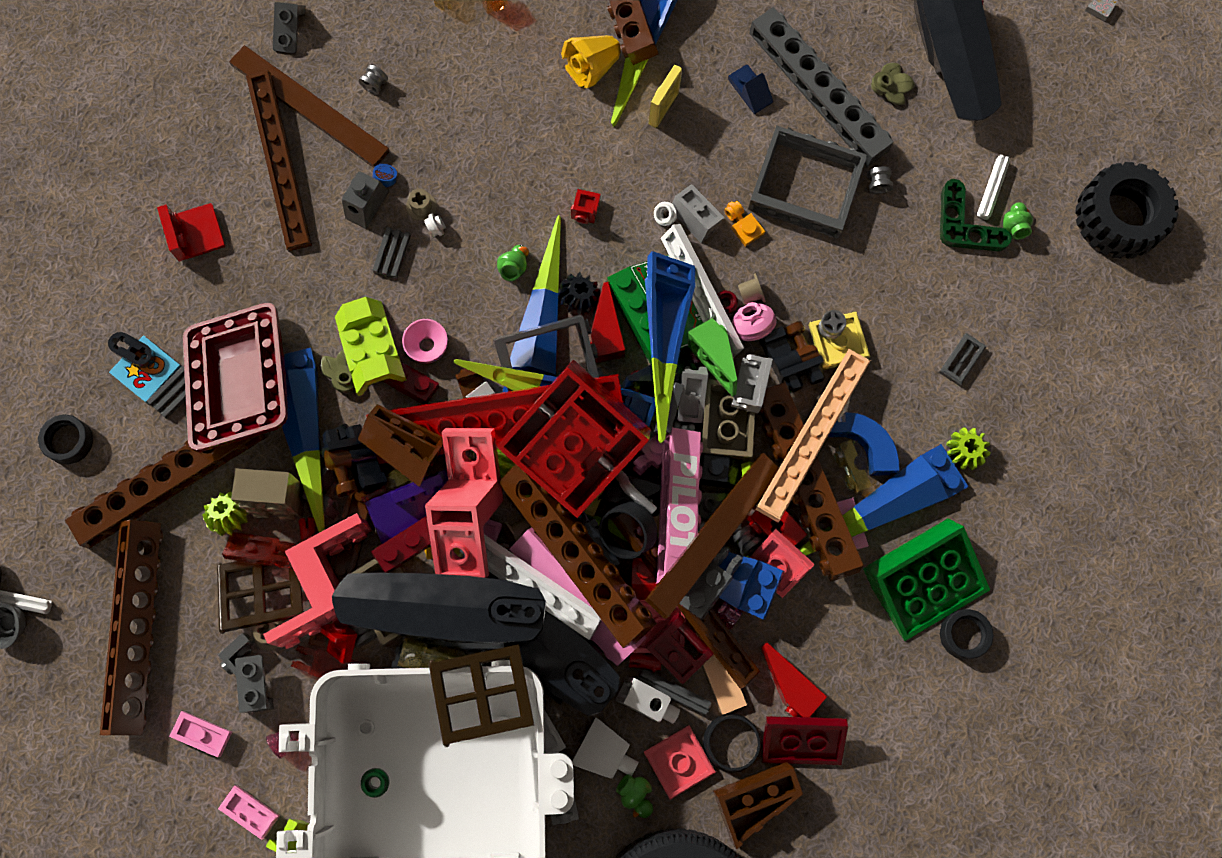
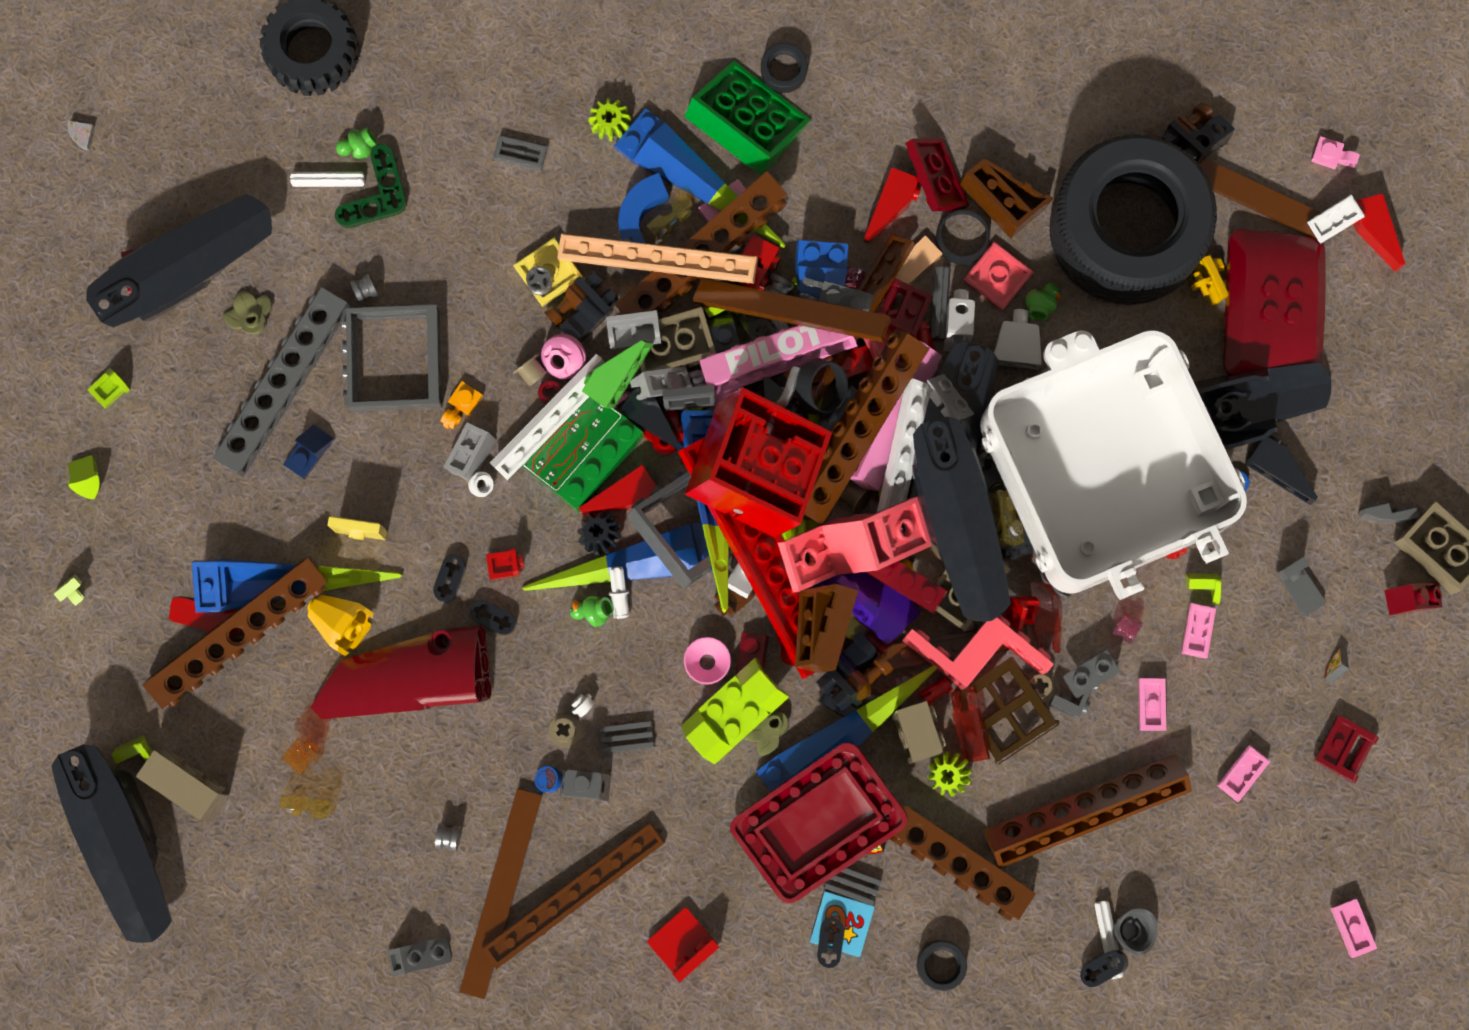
camera: 105 degrees left, 5 degrees up
(95, 796) = (1243, 773): none -> bright pink plate
(368, 788) = (1138, 508): dark green plate -> none
(481, 694) = (1025, 439): dark brown window -> none
(518, 99) = (410, 676): none -> dark red panel
(518, 290) = (619, 593): none -> white axle
(540, 178) = (495, 612): none -> black beam
(565, 648) = (942, 391): none -> light grey hinge
(596, 156) = (455, 581): none -> black beam
(668, 297) = (580, 438): blue plate -> none
(784, 555) = (782, 247): coral tile -> none

